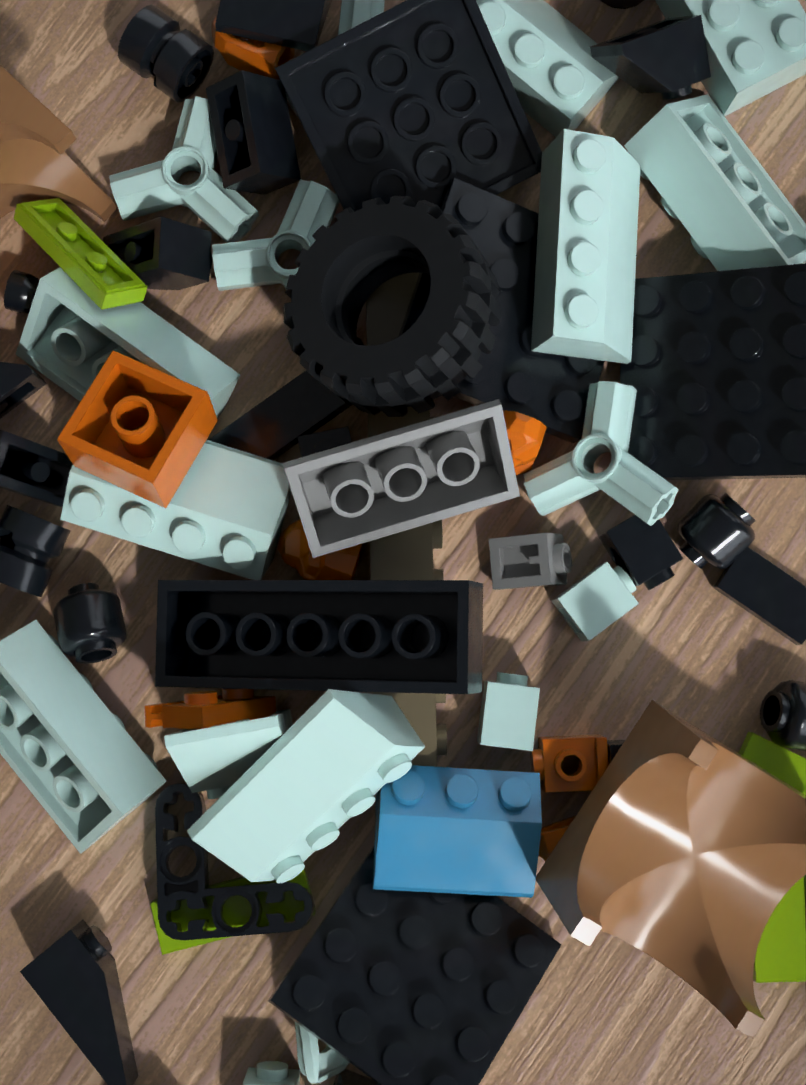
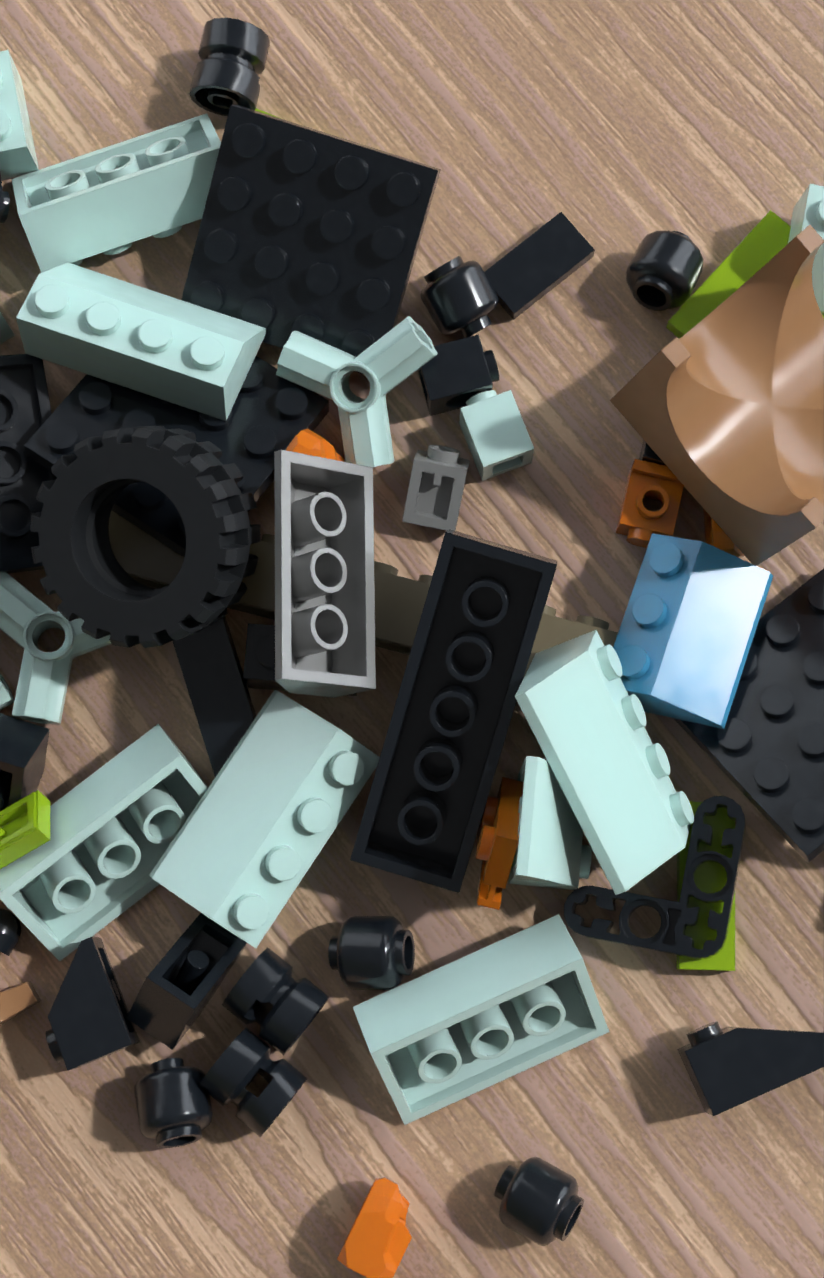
camera: 65 degrees left, 5 degrees down
(138, 428) = (190, 829): orange brick -> none
(332, 566) = (362, 710): orange rock -> none
(508, 713) = (584, 550): light aqua brick -> none

